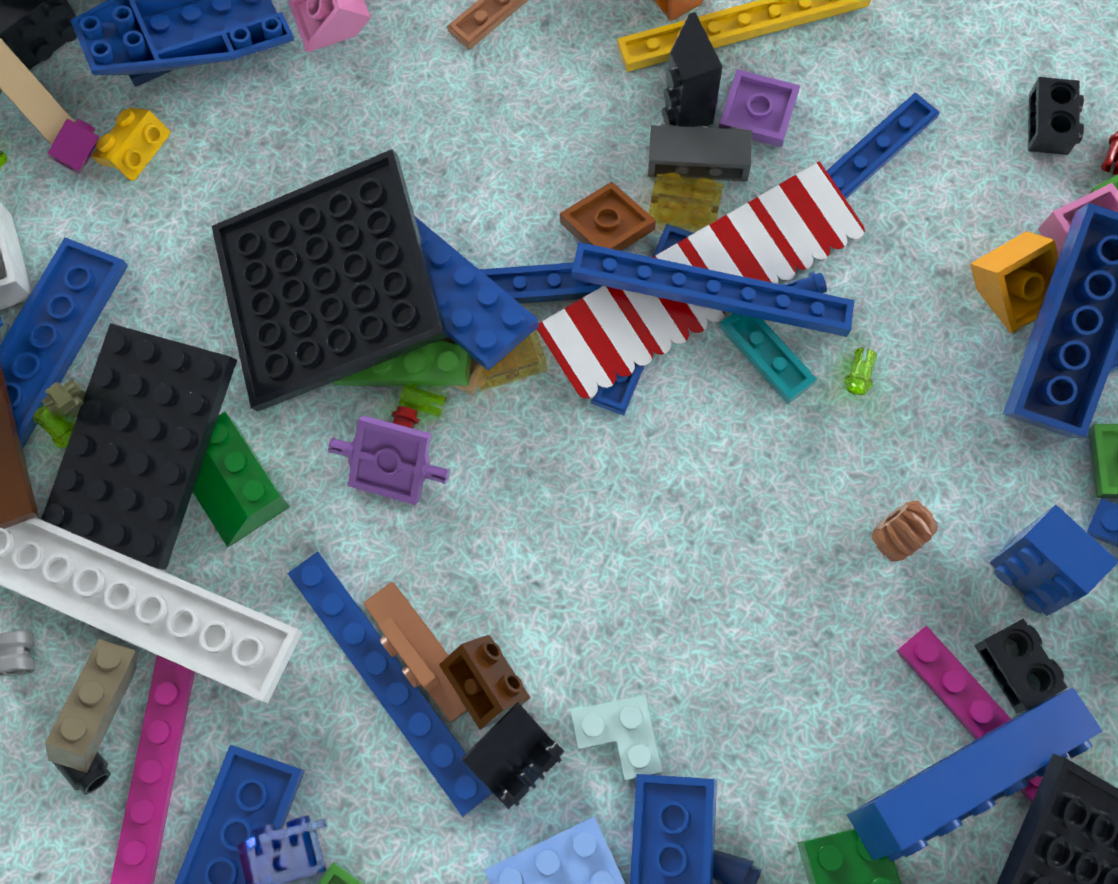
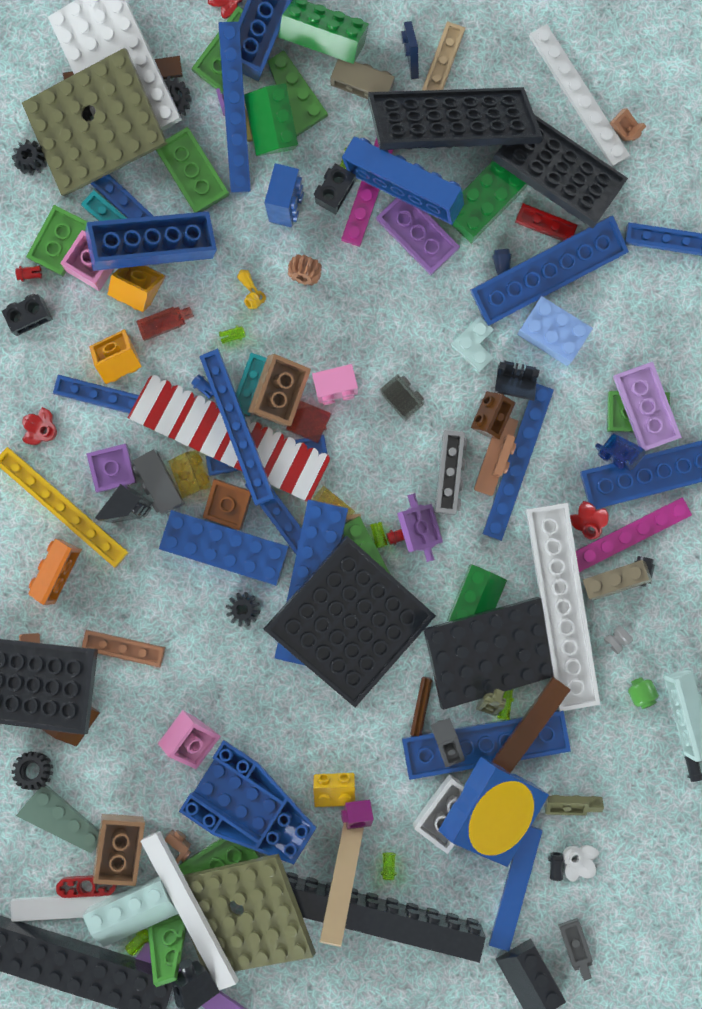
camera: 125 degrees left, 15 degrees up
(68, 308) = (447, 742): none -> dark grey slope
(143, 311) = (421, 706): none -> reddish brown axle
(217, 730) = (589, 517): none -> red plate
(439, 171) = (242, 602): none -> black gear
(441, 555) = (449, 472): none -> light grey brick
(556, 173) = (224, 548): none -> blue brick
(606, 560) = (402, 397): none -> clear smoke brick
(657, 402) = (309, 422): none -> clear red piece
(689, 463) = (335, 384): none -> bright pink brick
(730, 379) = (279, 390): none -> medium nougat brick
(861, 756) = (418, 234): none -> medium lavender plate
(875, 52) = (36, 426): none -> red plate
(900, 427) = (252, 299): none -> yellow piece
(922, 193) = (115, 357): none -> light orange slope
(938, 288) = (163, 322): none -> clear red hinge

